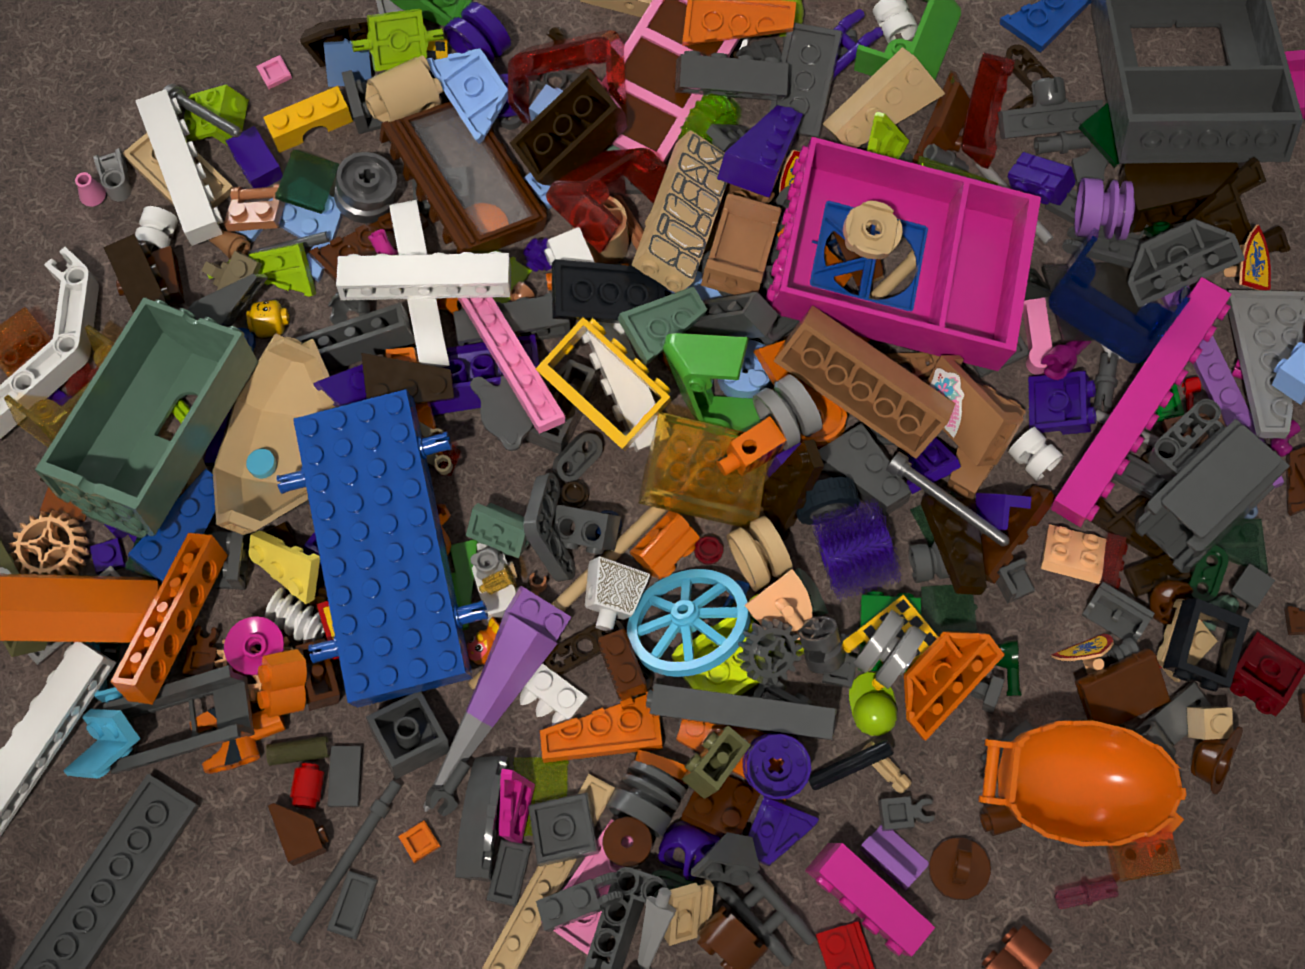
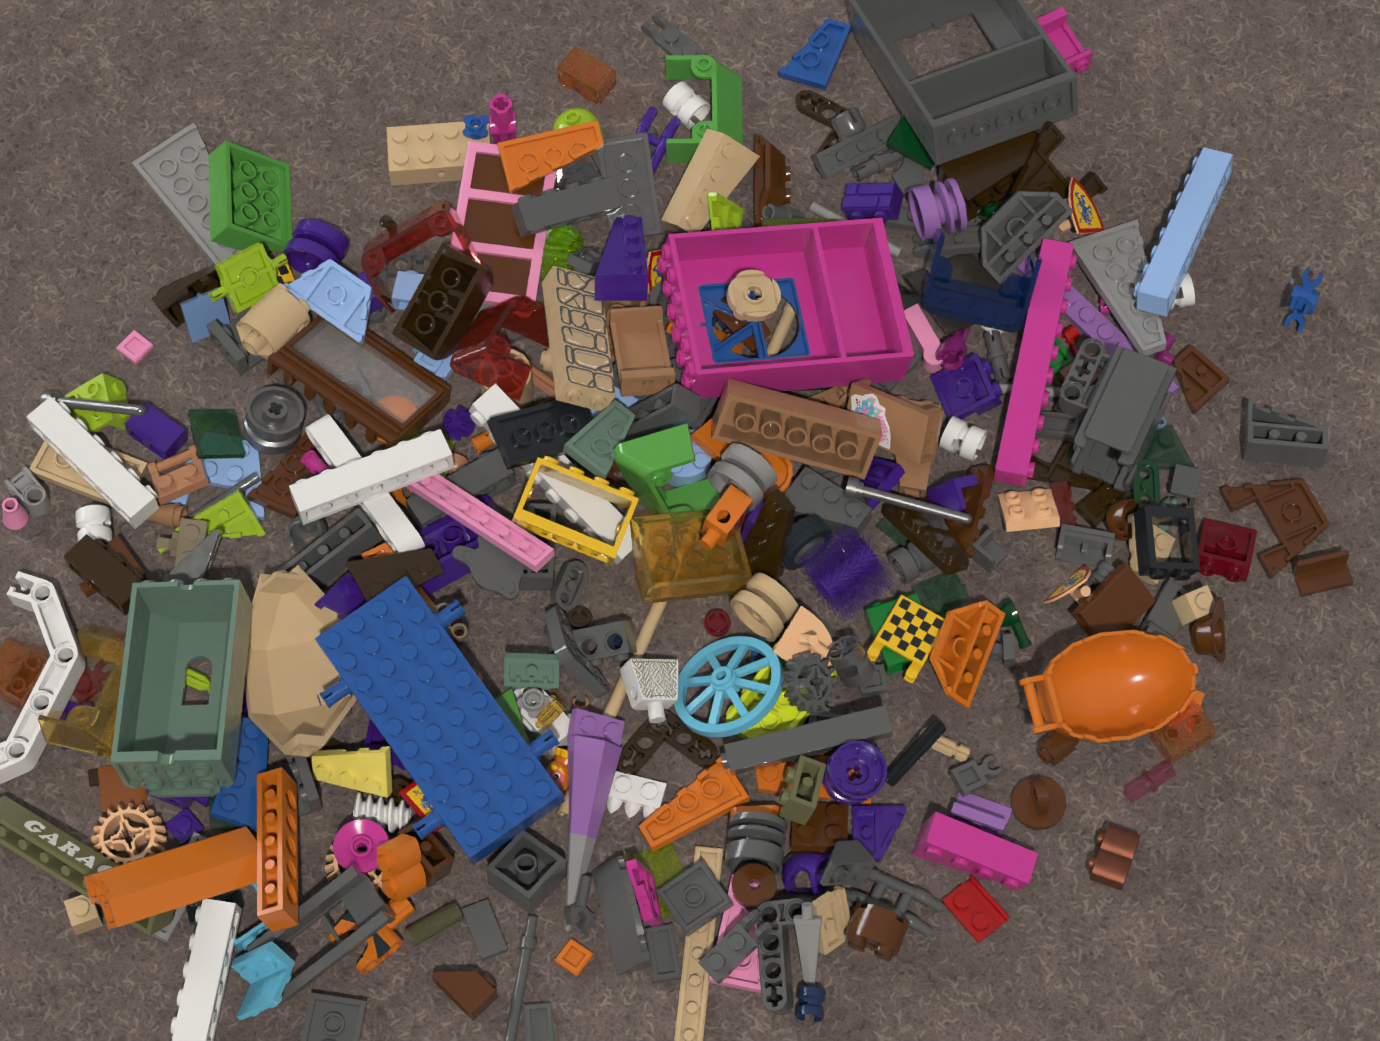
camera: 25 degrees left, 5 degrees down
(201, 657) = (312, 878): reddish brown plate -> none
(261, 463) = (289, 695): medium azure tile -> none
(267, 318) = (236, 565): yellow head -> none
(292, 122) = (176, 389): yellow arch -> none
(307, 786) = (456, 949): red brick -> none
(622, 664) = (687, 742): reddish brown brick -> none
(665, 545) = (679, 631): orange brick -> none
(872, 709) = (911, 701): lime cap -> none
(893, 651) = (910, 640): light grey wheel -> none
(983, 108) = (798, 157): clear red windscreen -> none

